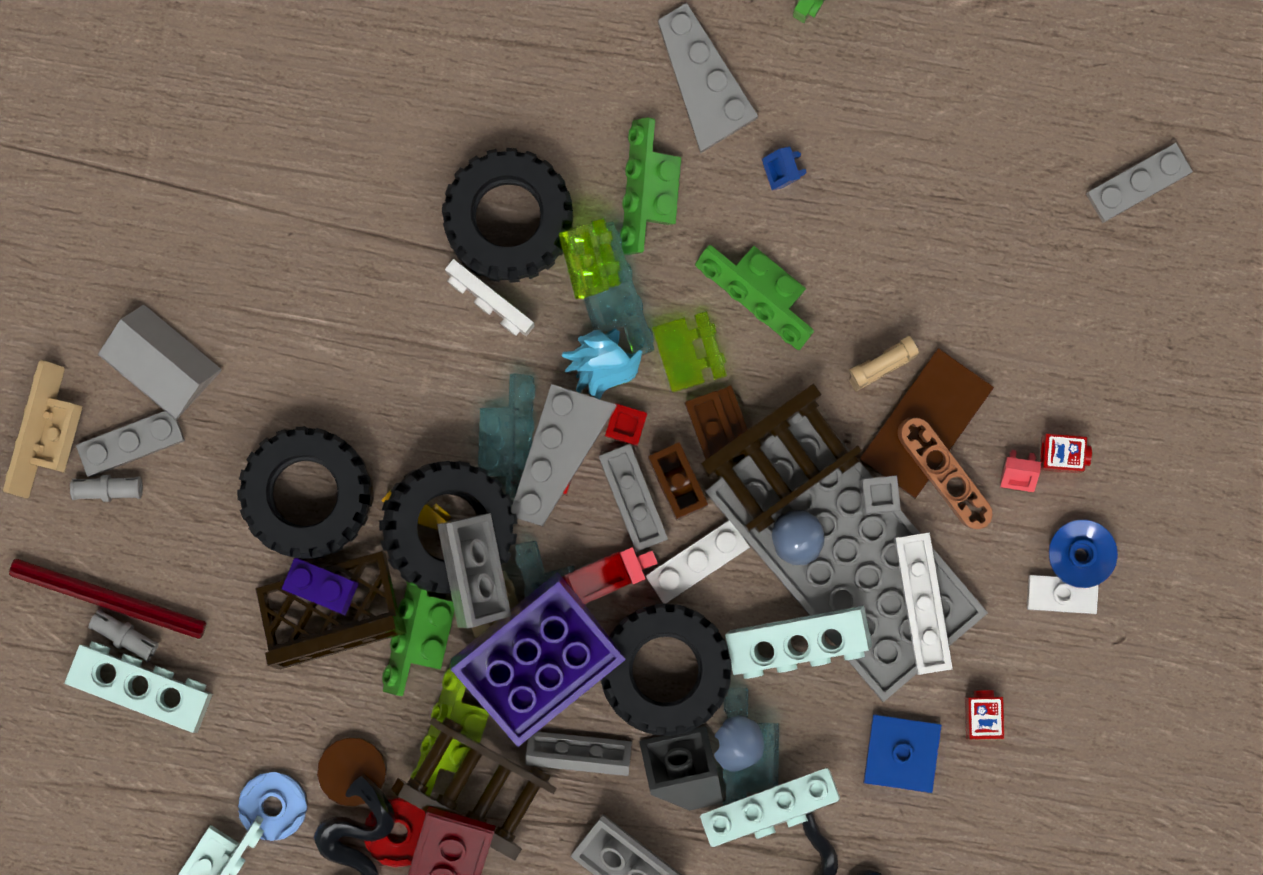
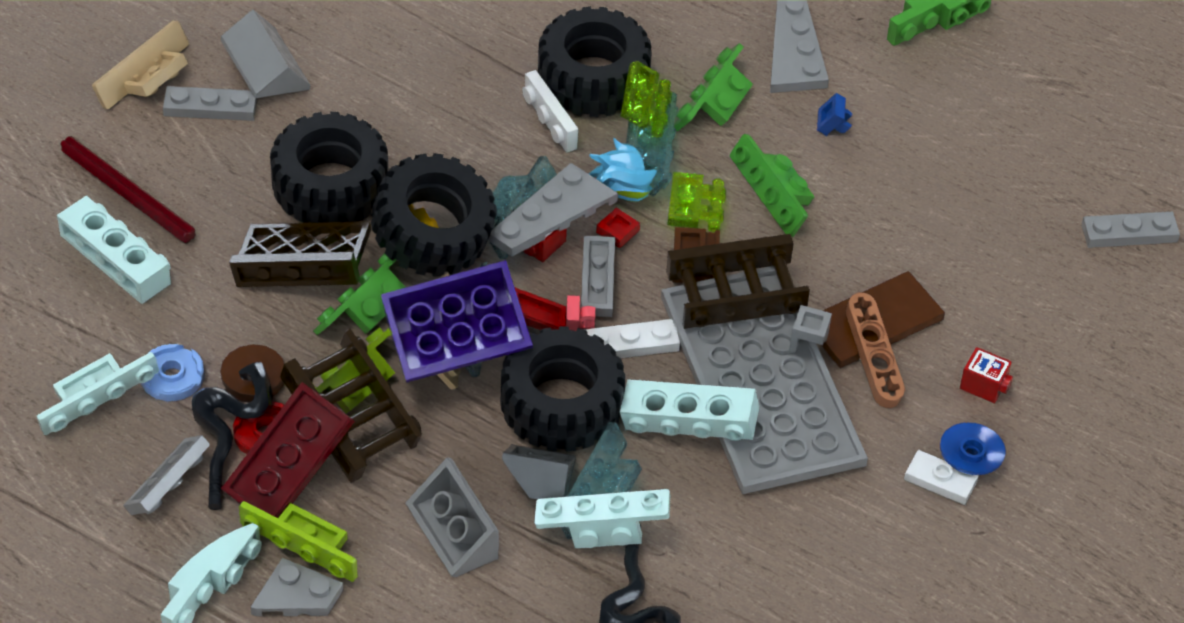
camera: 20 degrees right, 35 degrees down
(106, 488) = (172, 120): light grey pin -> none
(123, 635) = (125, 212): light grey pin -> none
(320, 586) = (304, 228): dark purple plate -> none
(474, 571) = (440, 227): light grey slope -> none
(579, 753) = (455, 428): light grey plate -> none
(677, 481) = (641, 271): reddish brown brick -> none
(740, 743) = (598, 456): sand blue hair -> none
(798, 537) = (725, 342): sand blue hair -> none
(889, 361) = (855, 263): tan plate -> none
(902, 753) = (741, 538): blue plate -> none
(923, 603) = (812, 423): white plate -> none
(984, 716) = (829, 533): brick -> none
(1020, 473) = (941, 375): coral tile -> none

